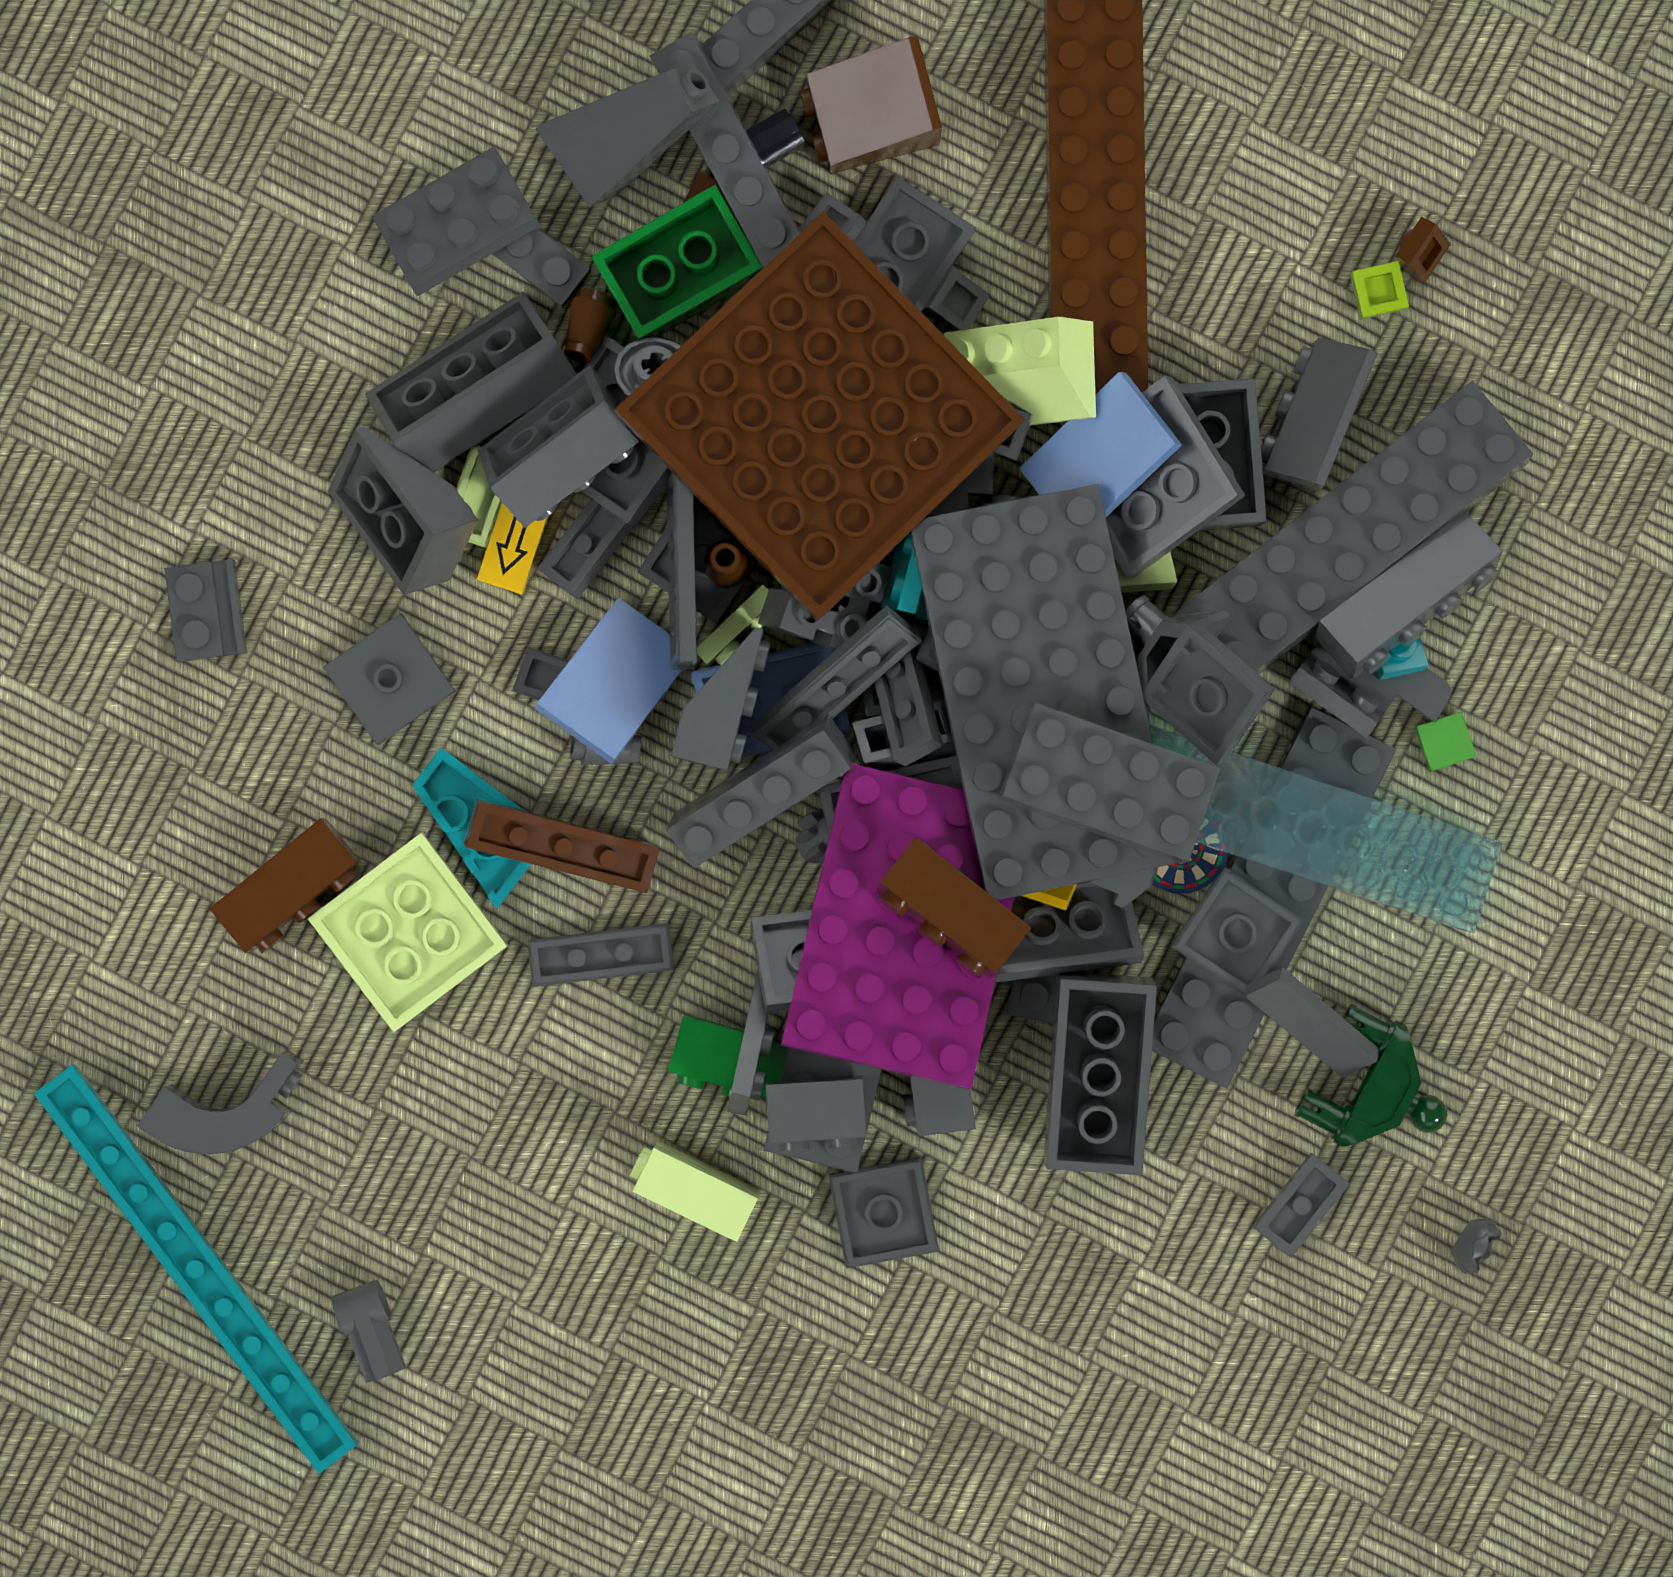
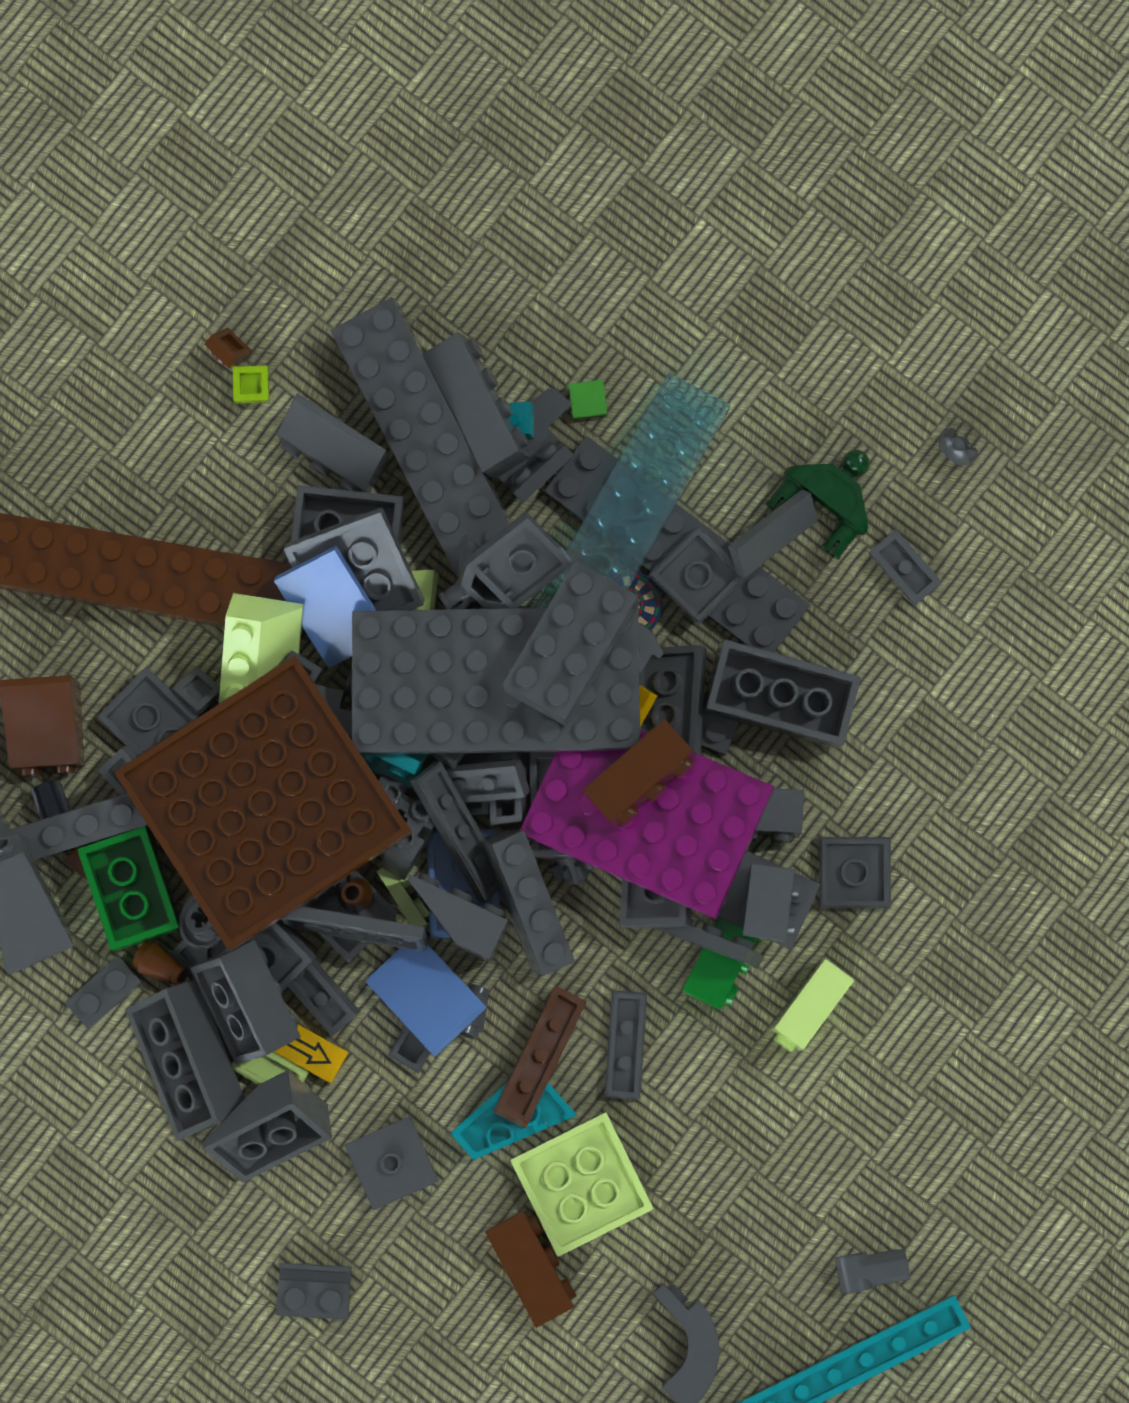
camera: 80 degrees left, 5 degrees down
(456, 221) = (63, 1047): dark grey plate -> none

